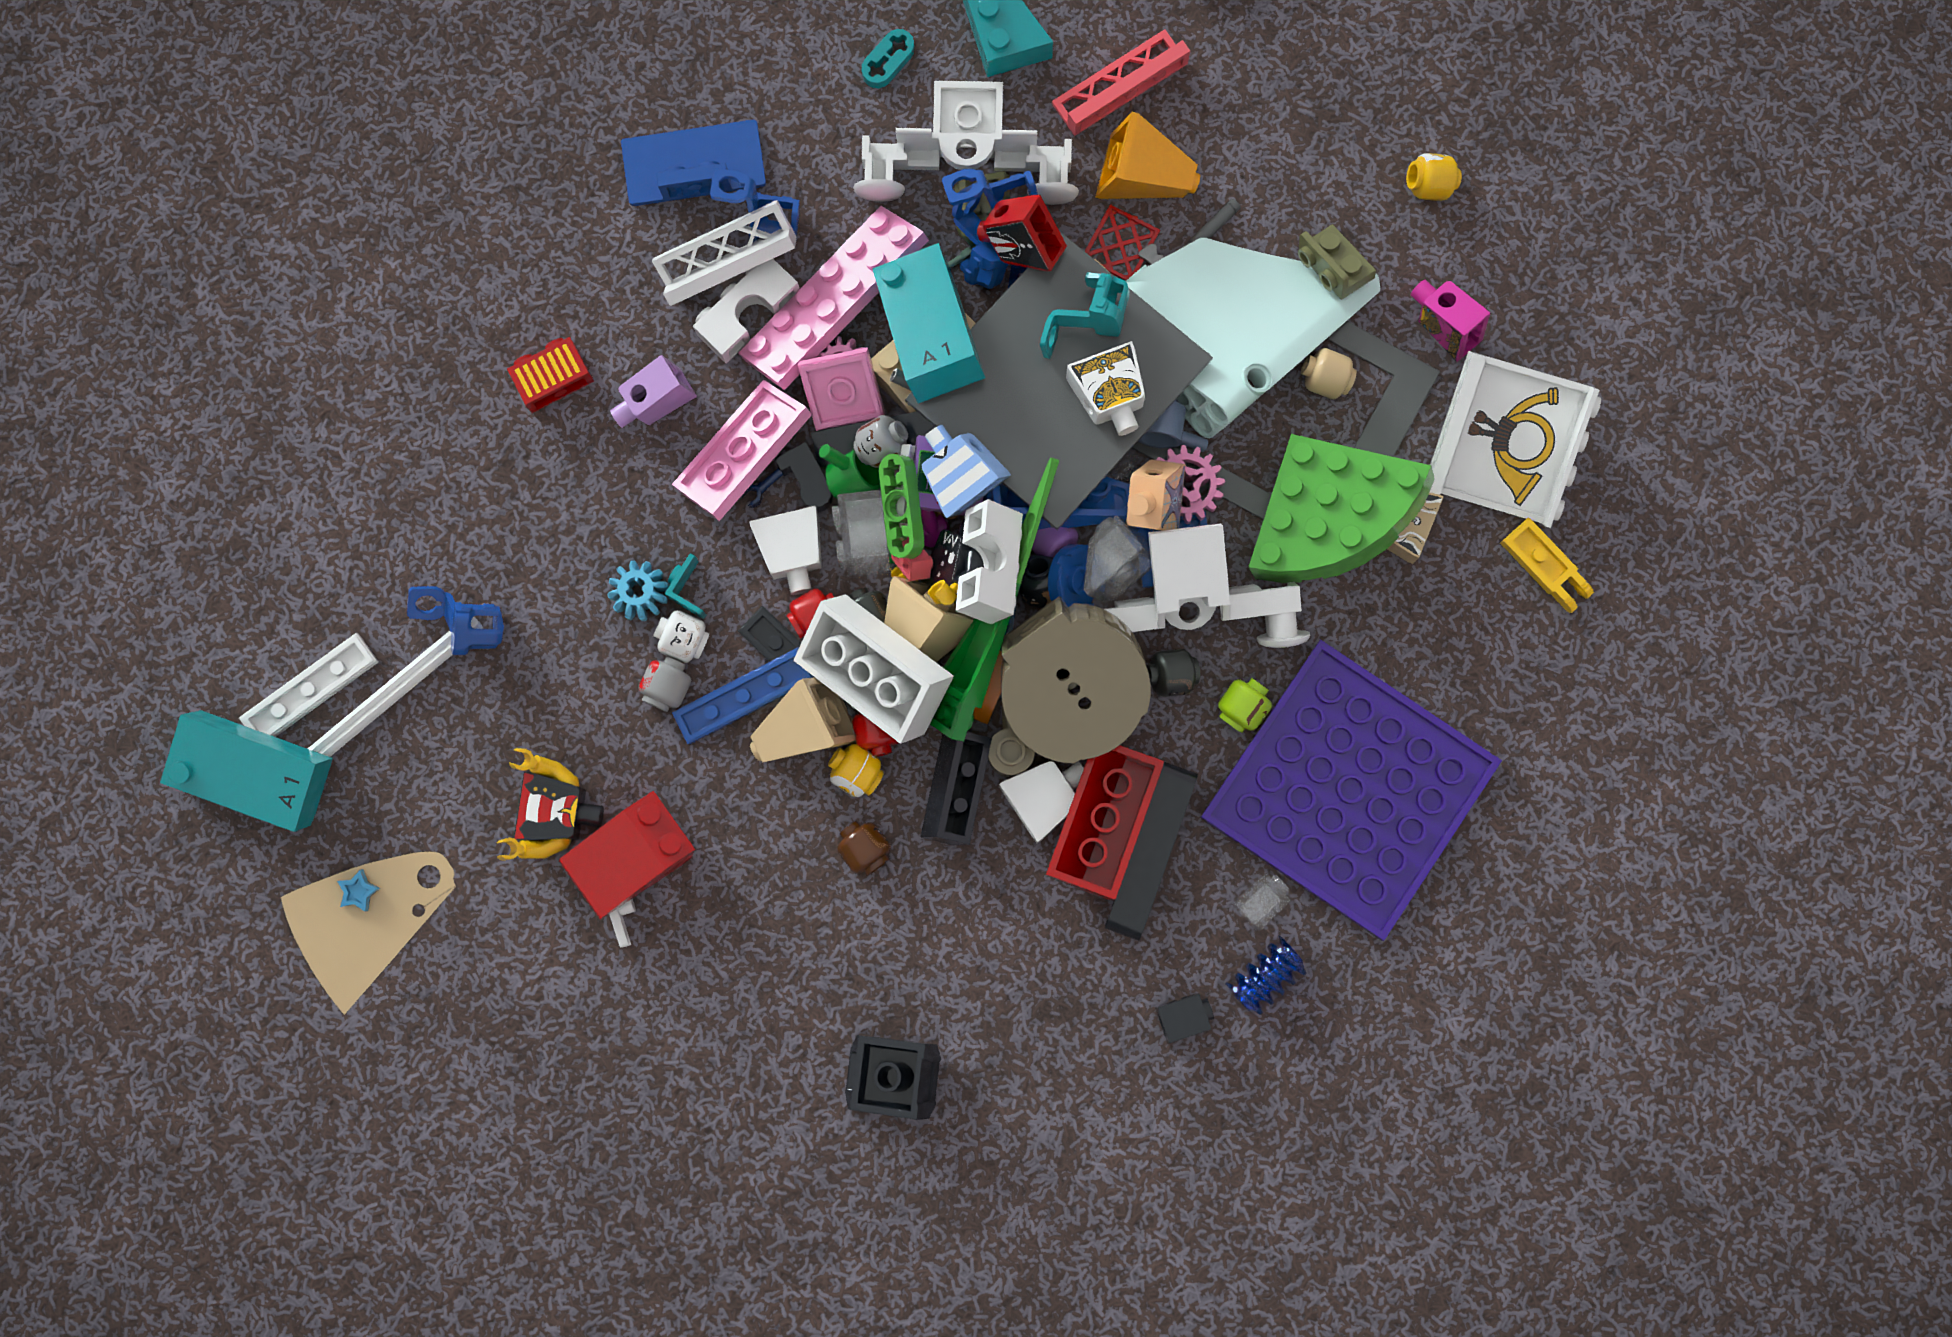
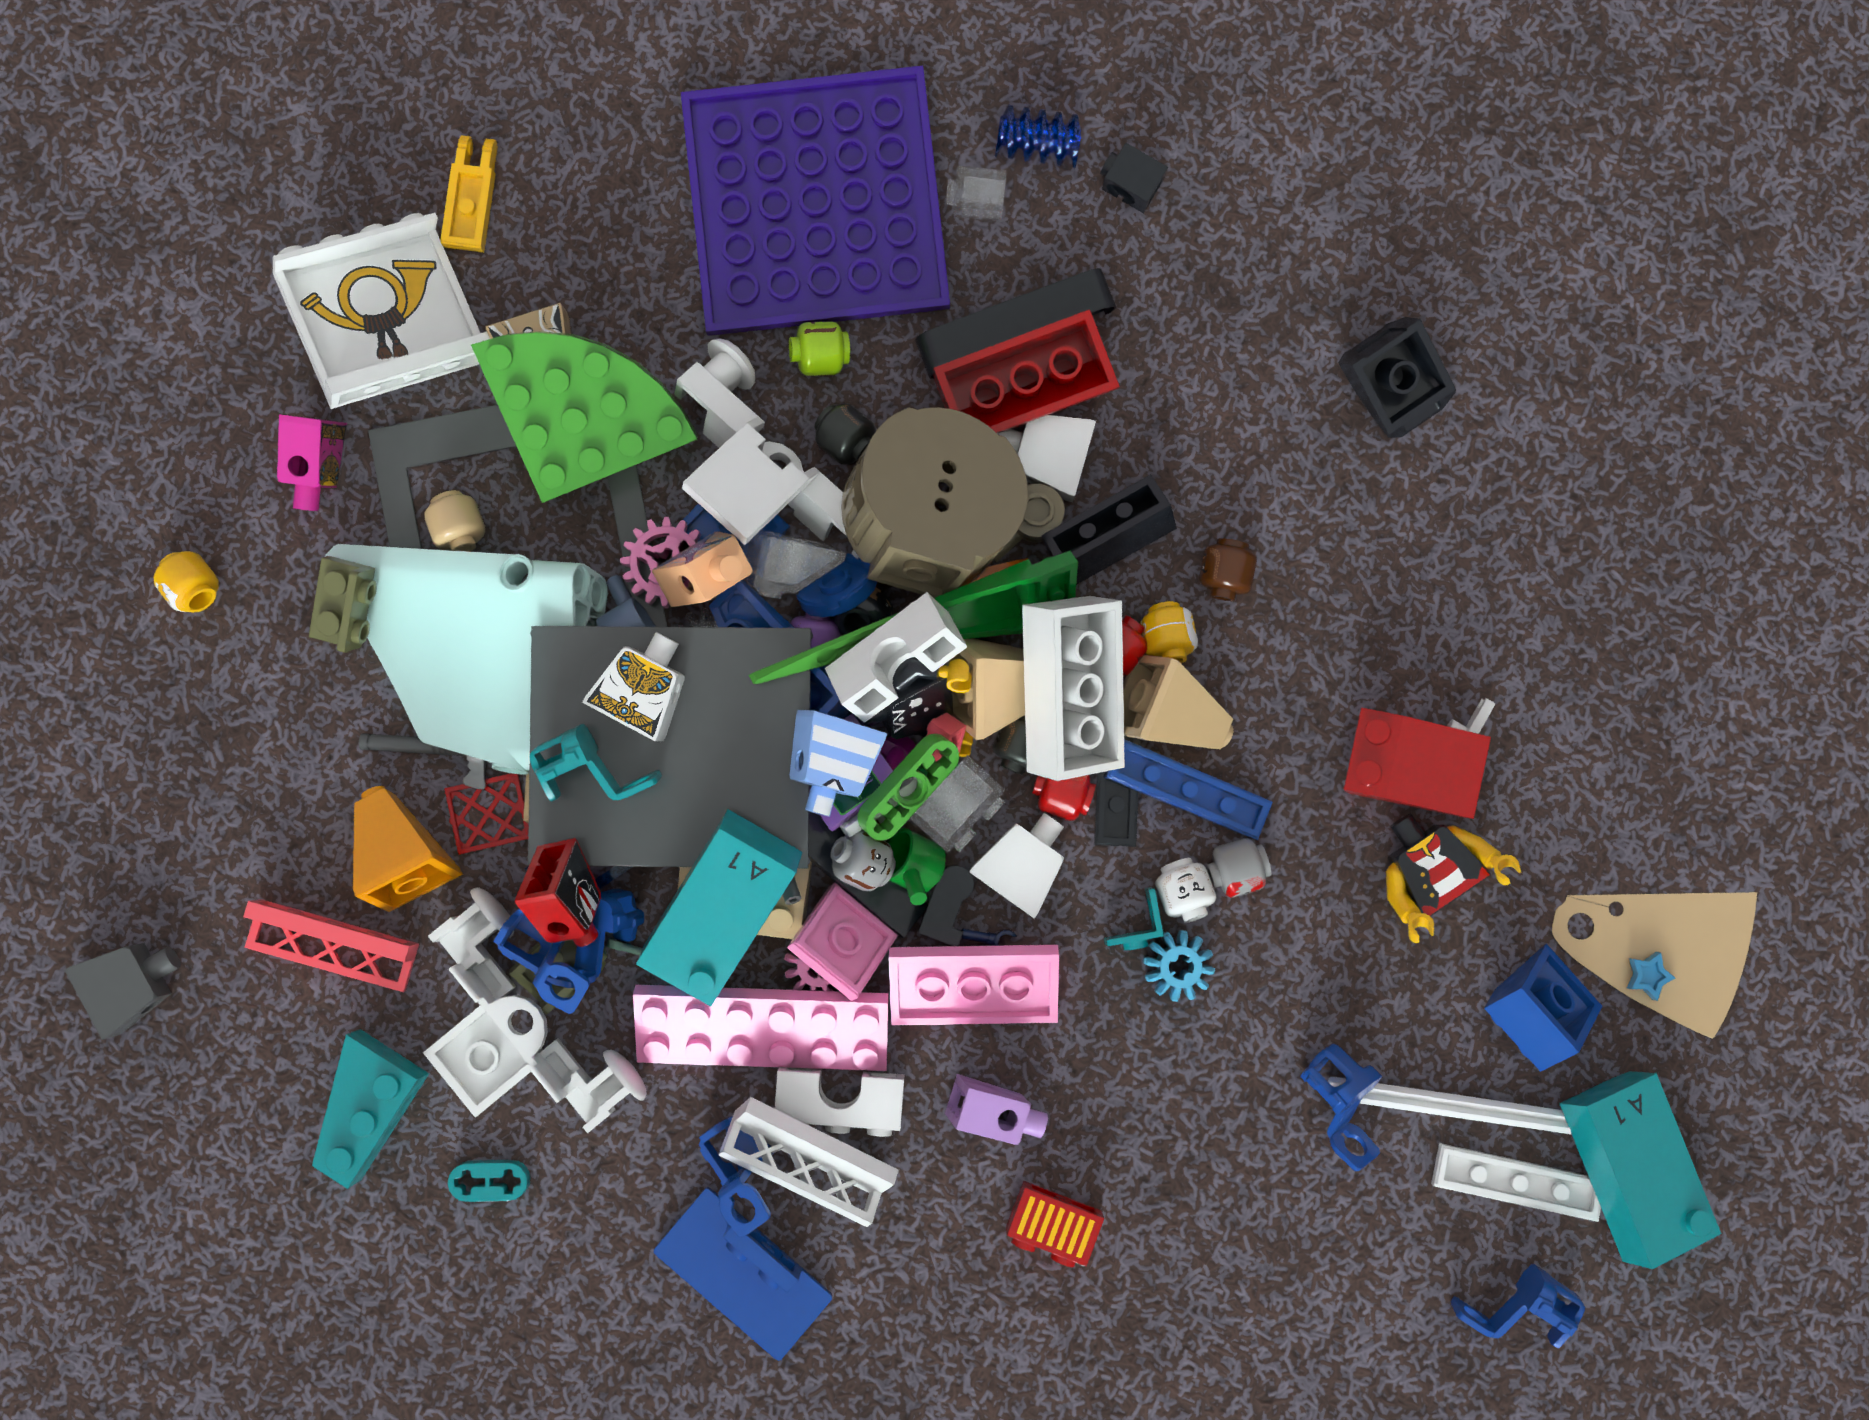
camera: 130 degrees left, 5 degrees up
(230, 630) = (1534, 1293): none -> blue piece
(398, 802) = (1544, 1009): none -> blue slope

